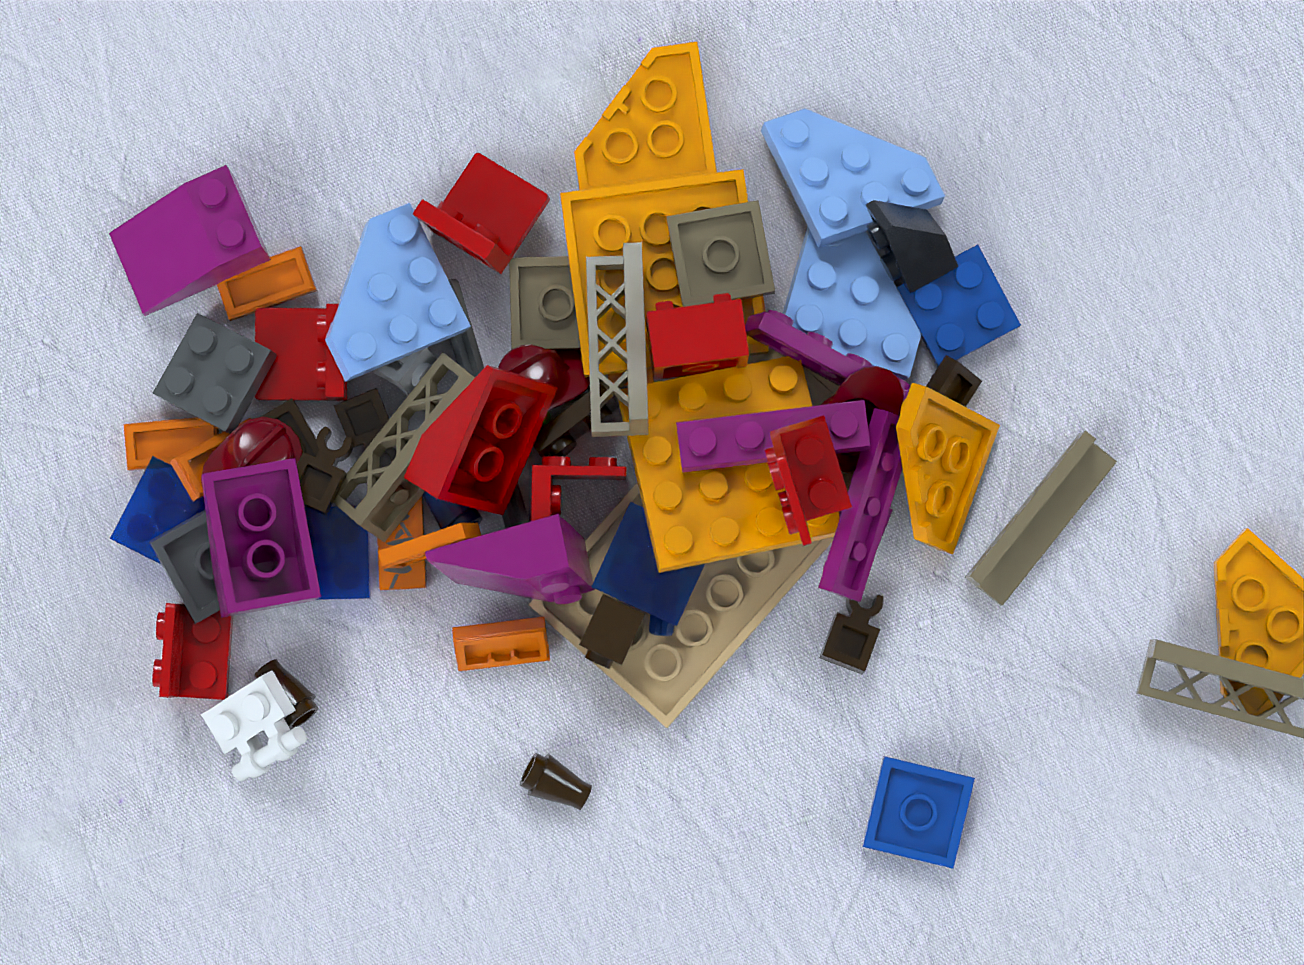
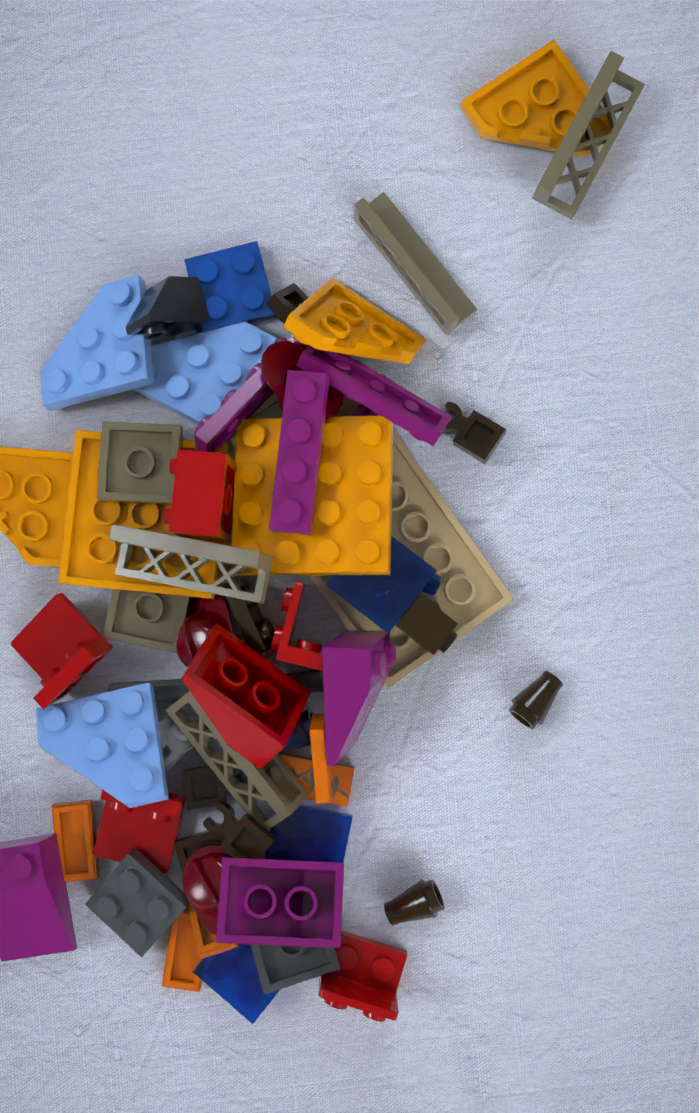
camera: 80 degrees left, 0 degrees up
(248, 713) = (423, 940): white plate -> none
(501, 643) = (414, 717): orange plate -> none
(810, 473) = (339, 429): red bracket -> none
(918, 812) = (626, 414): blue plate -> none

